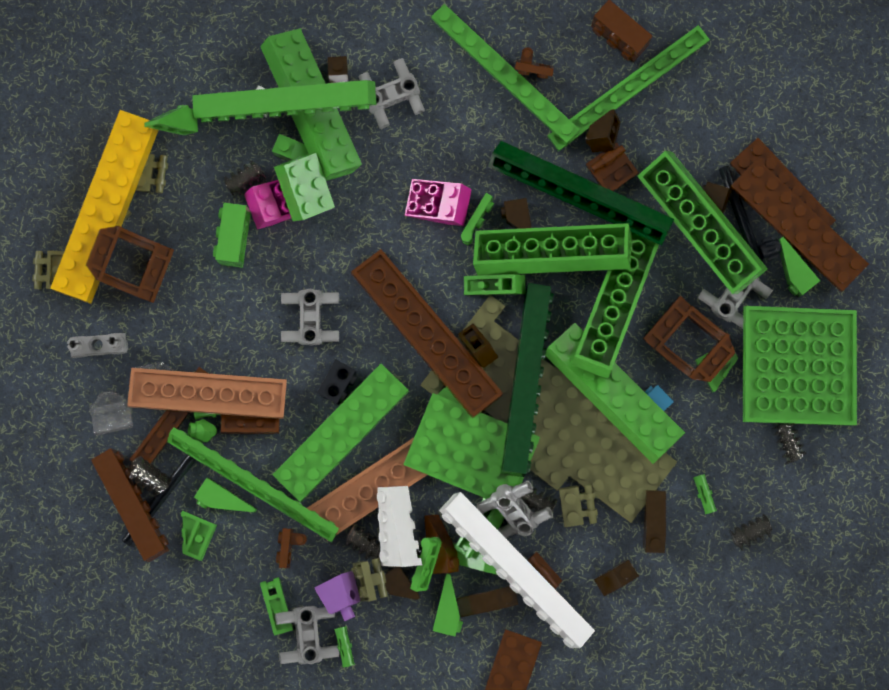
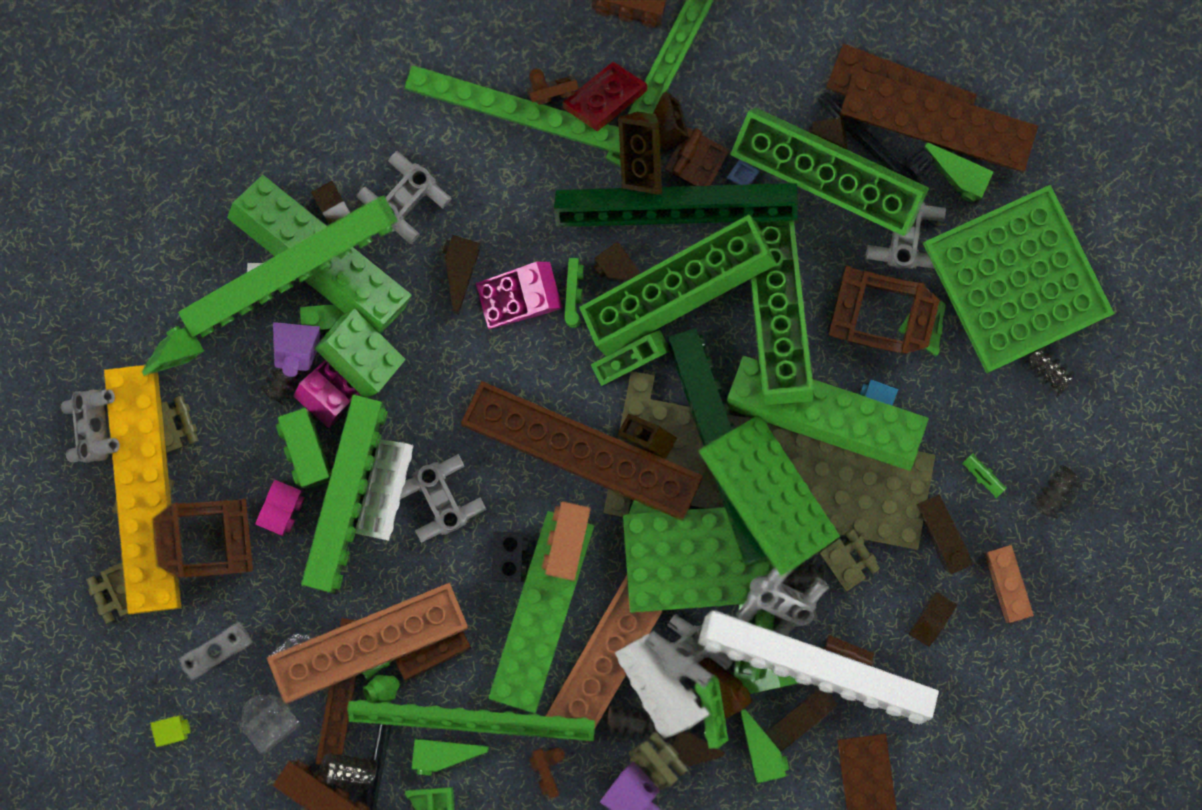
camera: 30 degrees left, 0 degrees up
(40, 385) = (170, 730): none -> lime brick
(87, 158) = (91, 442): none -> light grey piece
(195, 268) = (279, 508): none -> dark pink brick
(243, 281) = (344, 494): none -> bright green brick
(261, 159) = (294, 347): none -> medium lavender torso
(273, 291) = (384, 489): none -> white plate
(382, 391) = (566, 541): none -> nougat brick
(407, 160) = (460, 263): none -> dark brown slope
(427, 513) = (686, 653): none -> light grey piece
(543, 430) = (769, 494): none -> bright green plate
(569, 91) = (605, 96): none -> dark red plate
(573, 142) = (640, 152): none -> dark brown slope
(640, 194) = (743, 173): none -> medium blue tile
(683, 580) = (1008, 584): none -> nougat brick

